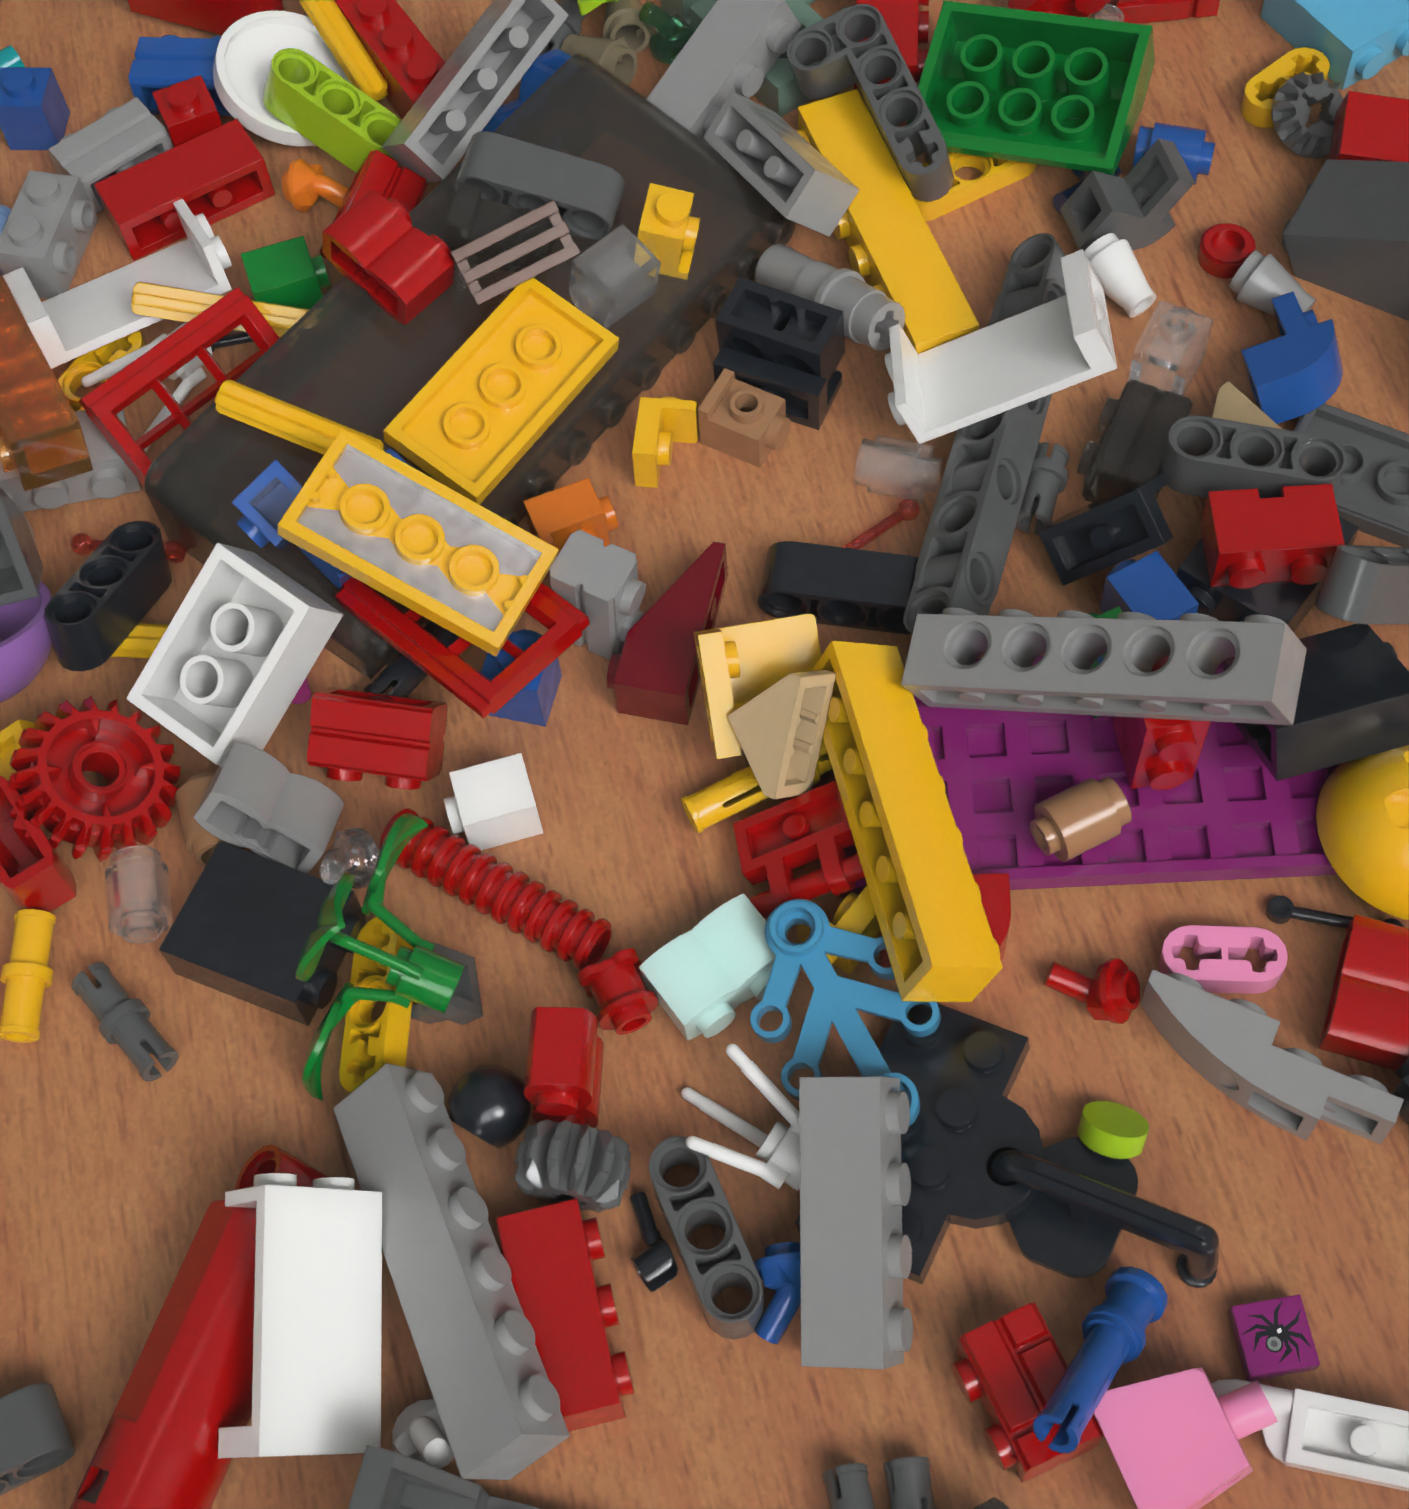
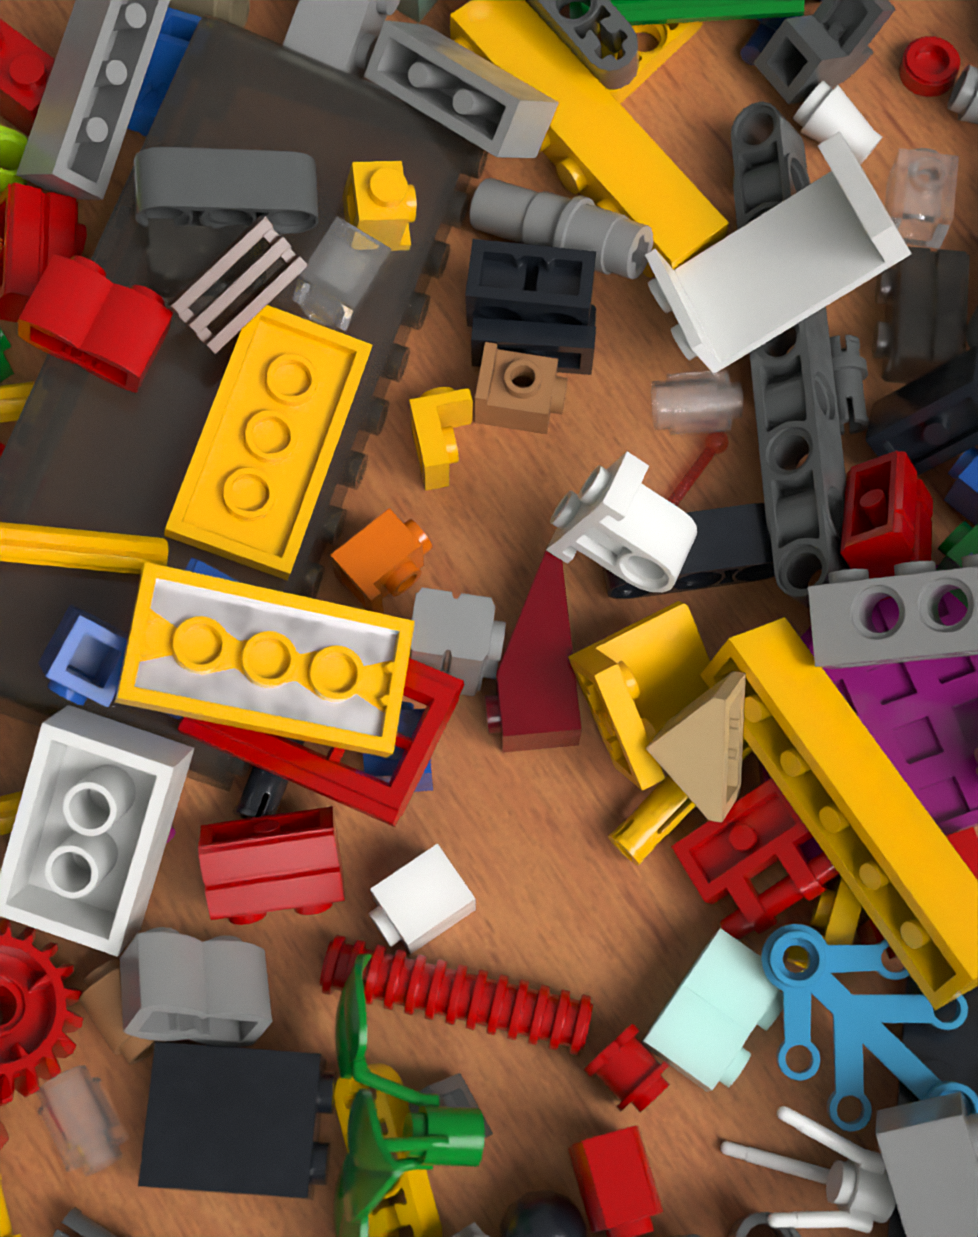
camera: 25 degrees left, 10 degrees up
(352, 852) = (296, 1011): clear plate -> none
(780, 532) = (624, 527): none -> white pin
(1030, 581) = (886, 516): none -> red brick

